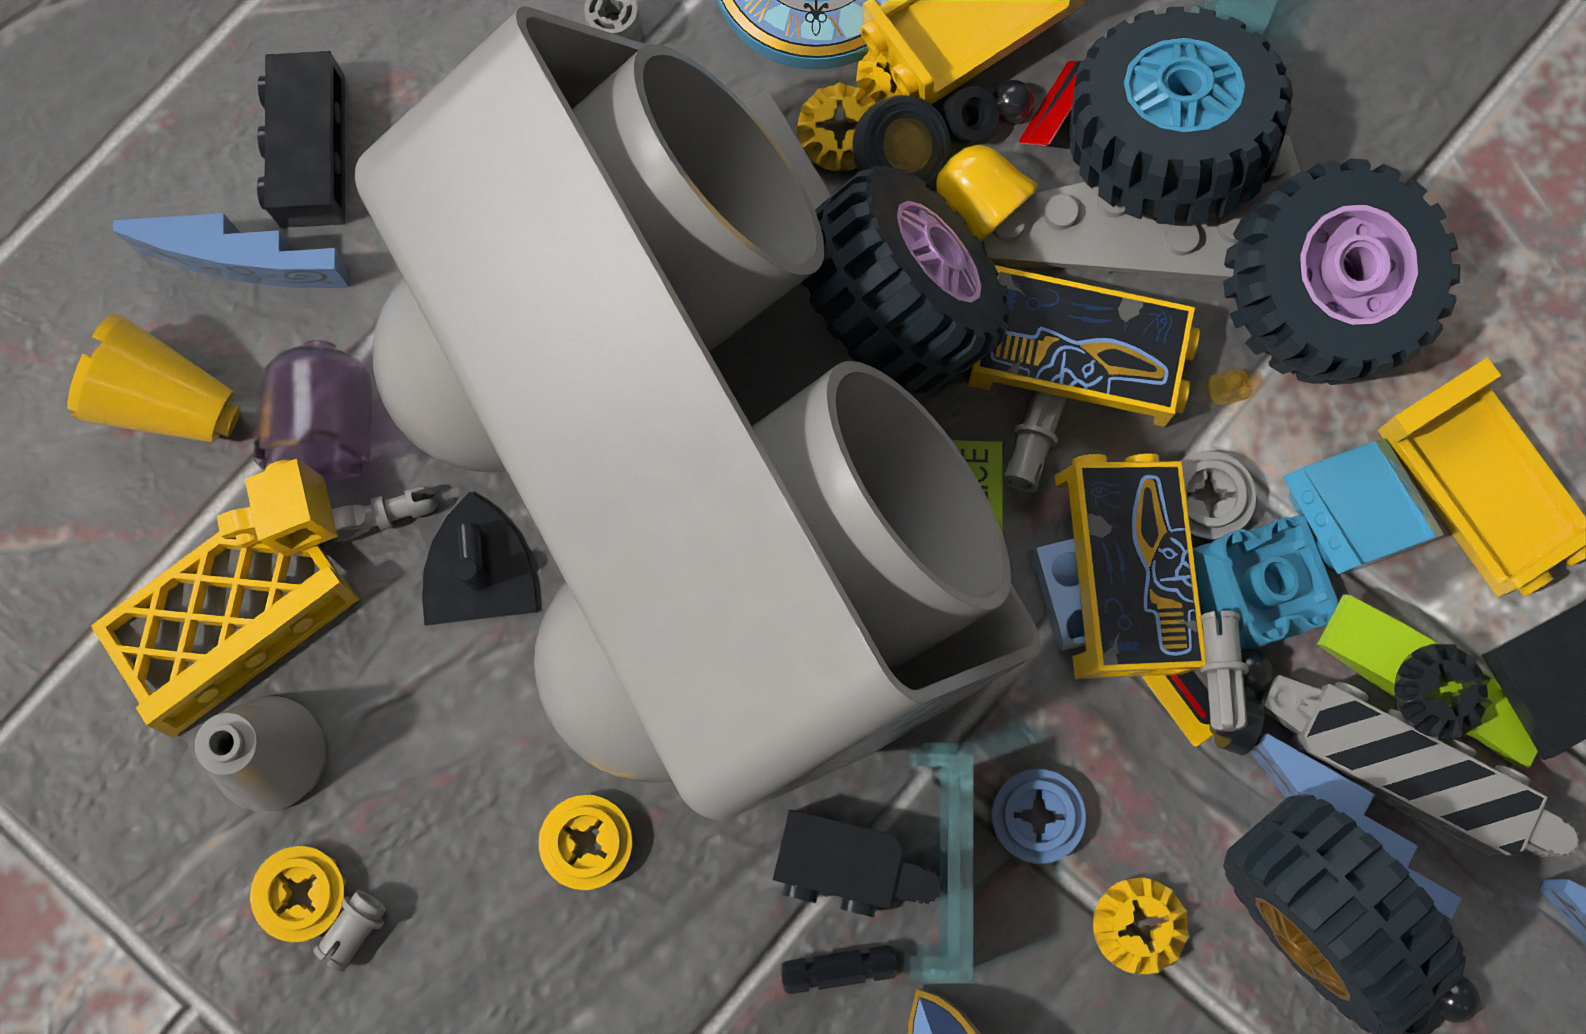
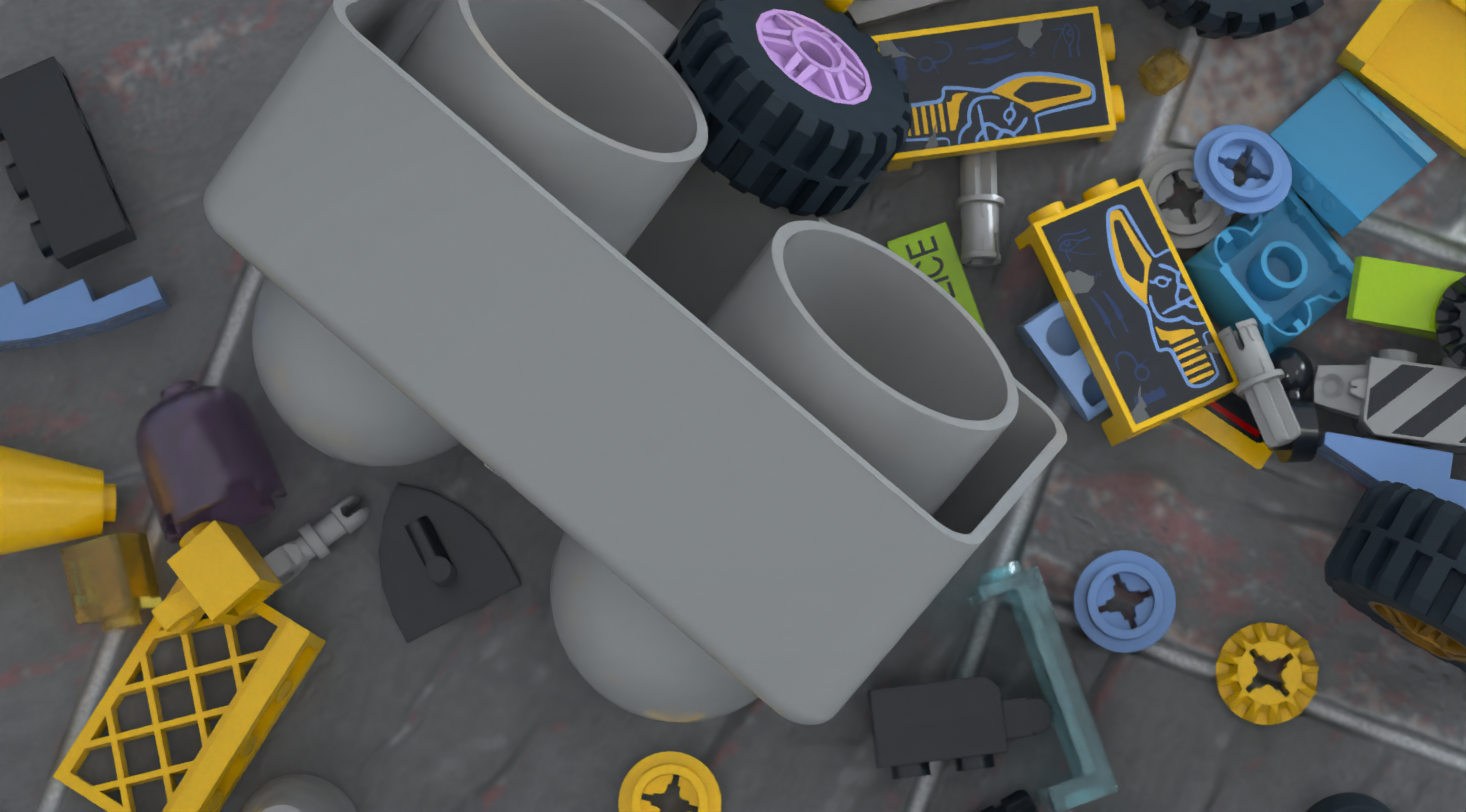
camera: 25 degrees left, 5 degrees up
(201, 480) = (111, 580): none -> clear yellow brick
(1291, 491) = (1265, 164): none -> medium blue gear

